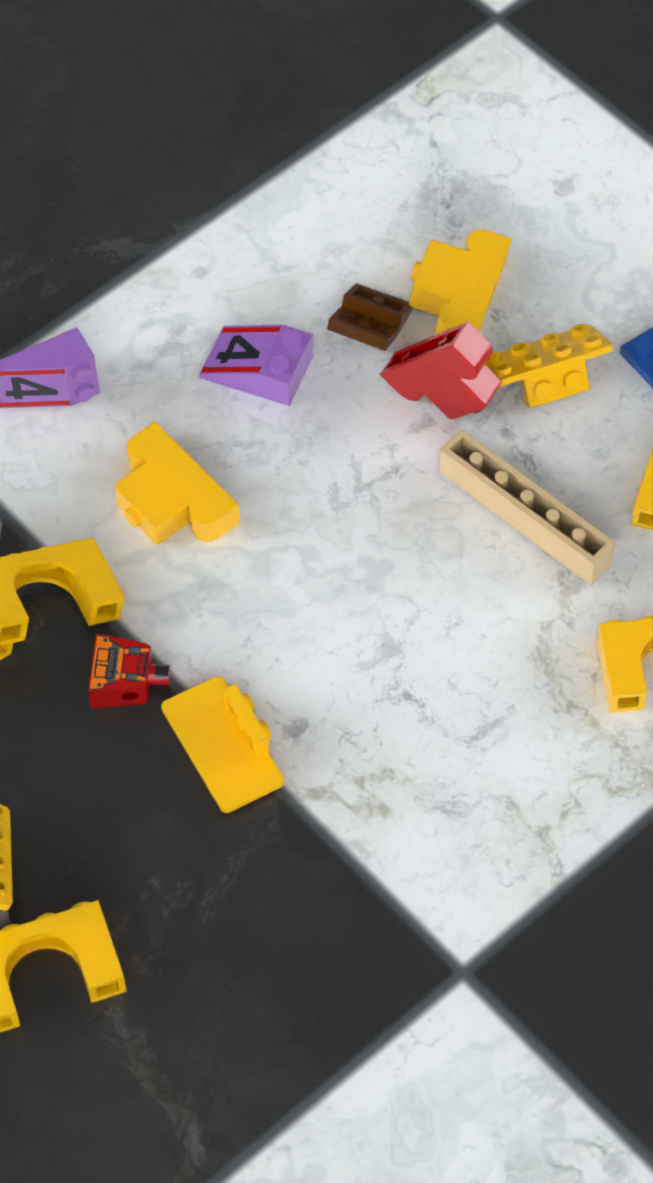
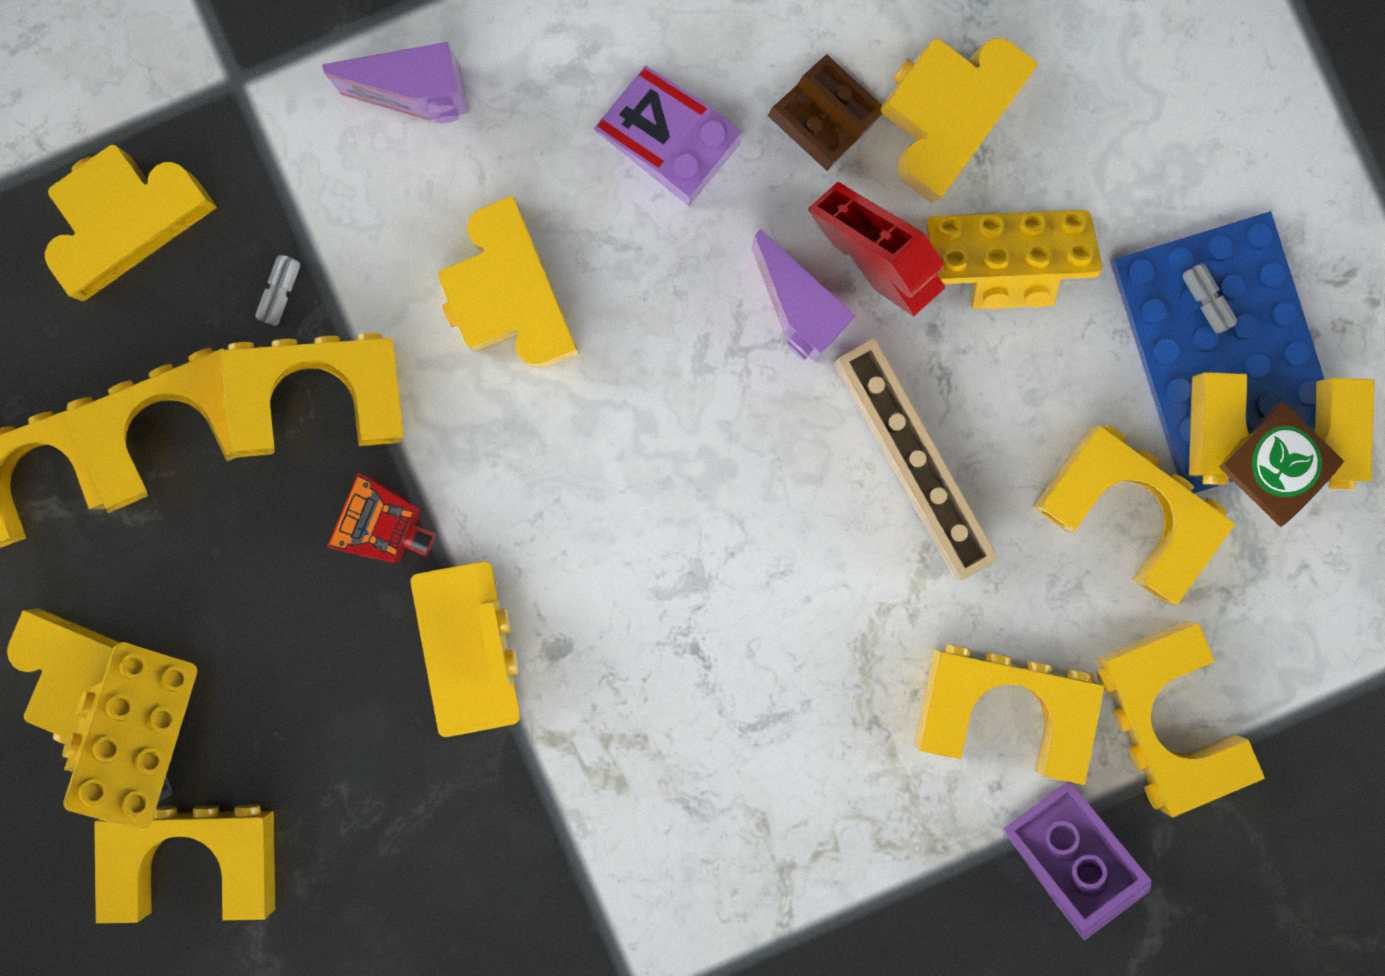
camera: 15 degrees right, 30 degrees up
(395, 425) = (803, 305): none -> medium lavender slope

